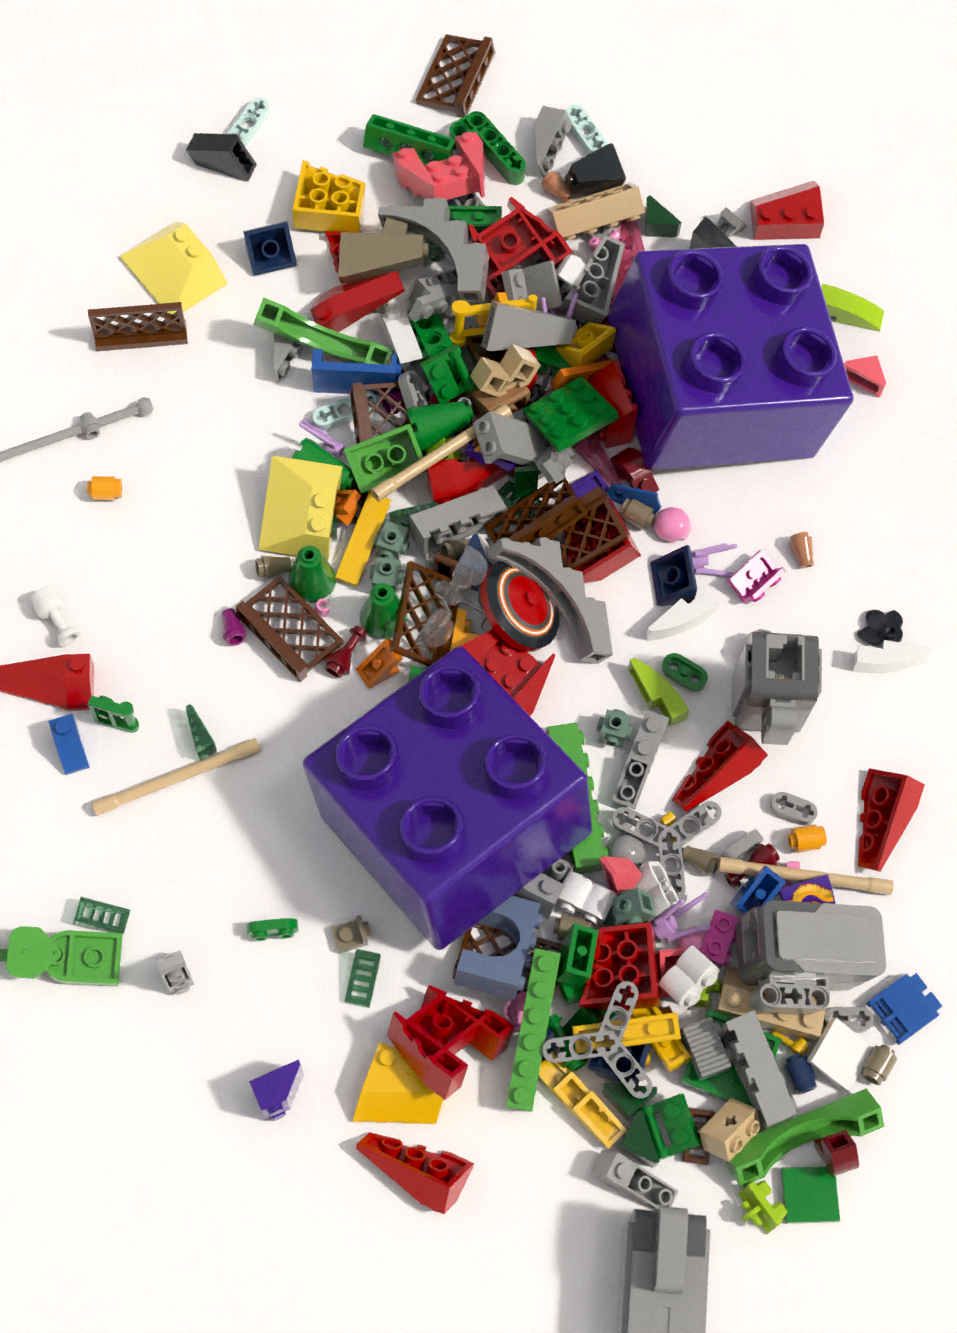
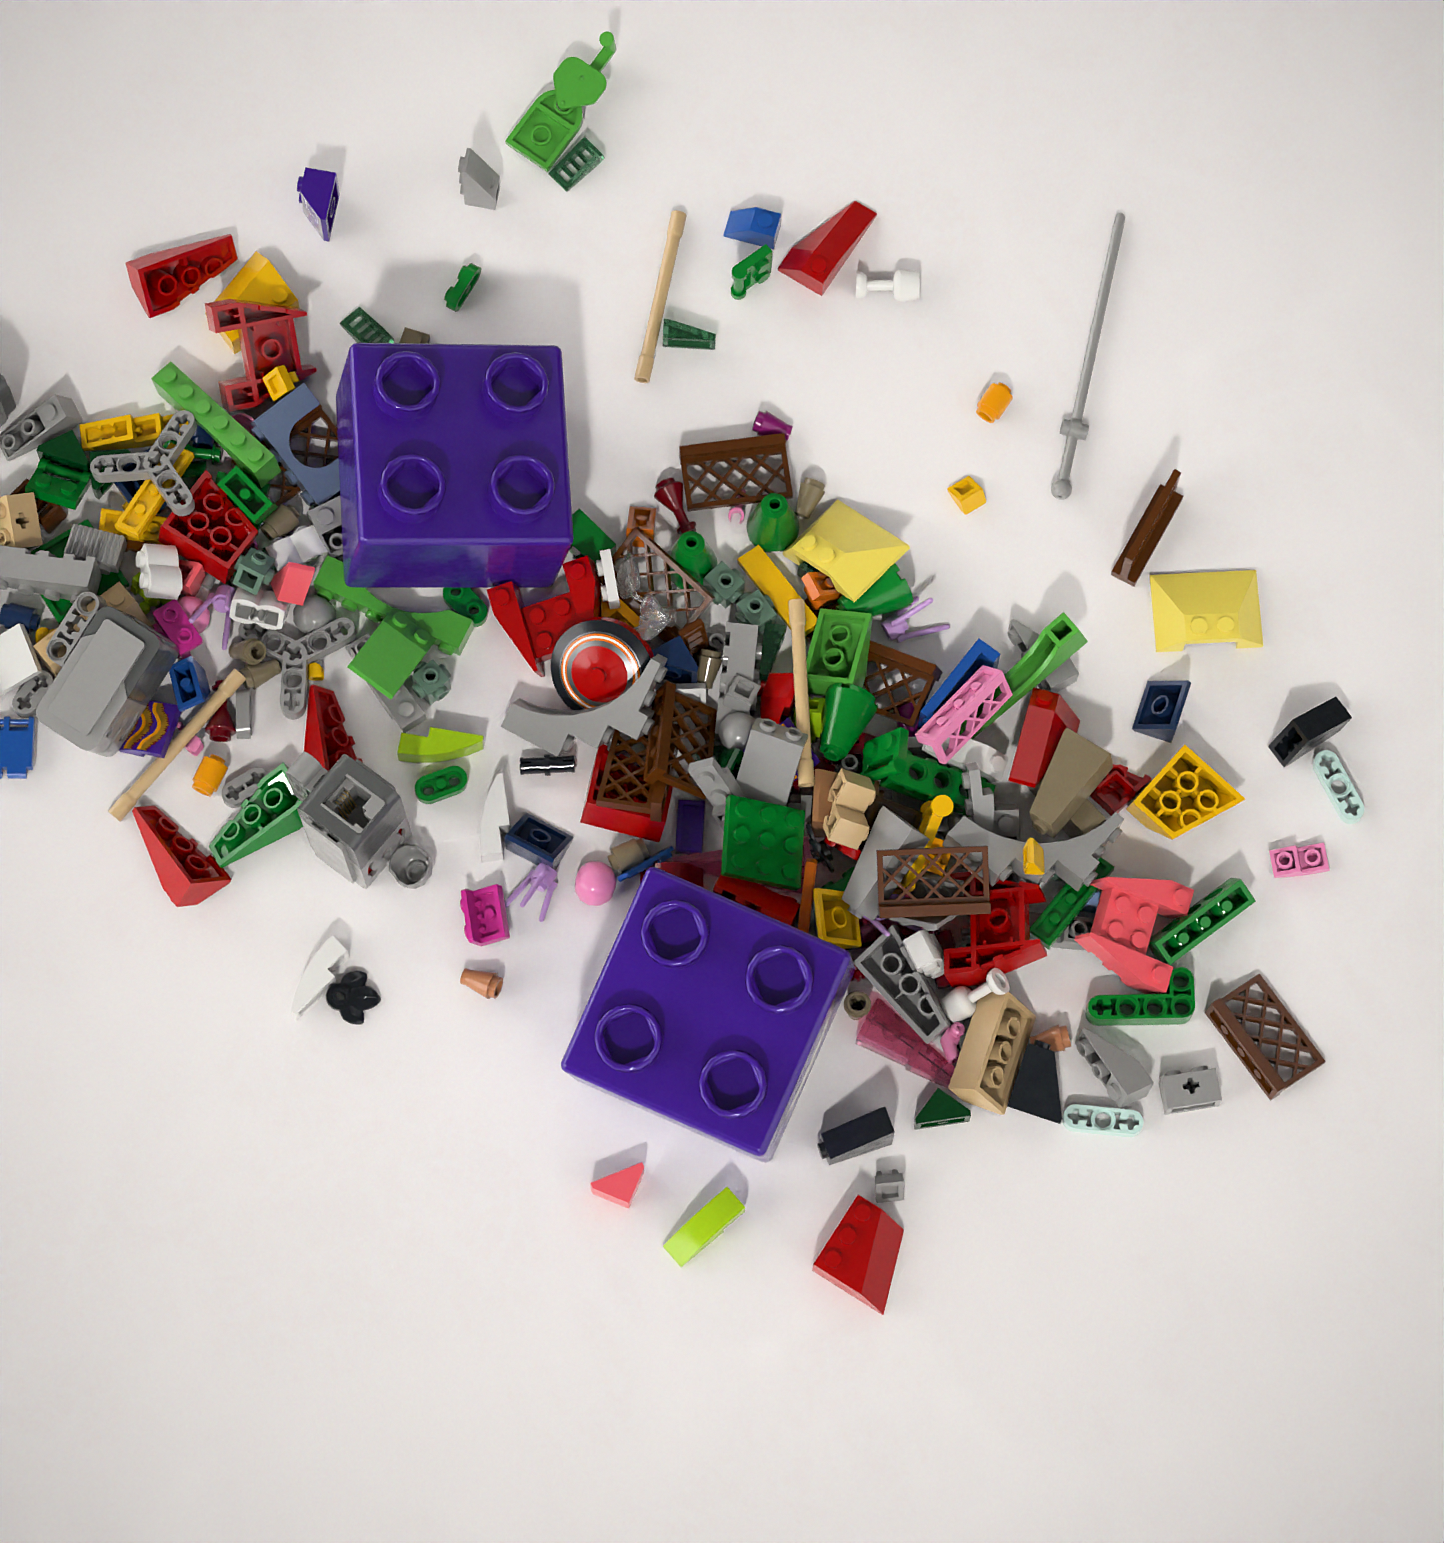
camera: 125 degrees right, 5 degrees up
(191, 467) = (967, 495): none -> yellow slope
(317, 118) = (1299, 861): none -> bright pink slope
(340, 419) = (942, 650): light aqua beam -> none
(376, 344) = (963, 707): none -> bright pink fence
(411, 389) = (895, 719): light grey beam -> none
(452, 639) = (606, 569): none -> white plate
(457, 229) = (1033, 858): none -> yellow slope
(466, 995) = (280, 382): none -> yellow tile
(468, 500) = (741, 694): none -> light grey slope
(496, 487) = (736, 730): none -> light grey hair
(527, 91) = (1178, 1100): none -> light grey brick
(531, 270) = (929, 905): none -> reddish brown fence
(577, 242) = (962, 1001): none -> white piece
(614, 611) = (547, 765): none -> black pin
(622, 759) = (392, 653): none -> bright green slope
(694, 875) = (249, 651): none -> dark tan cone
(803, 774) = (262, 820): none -> green wedge

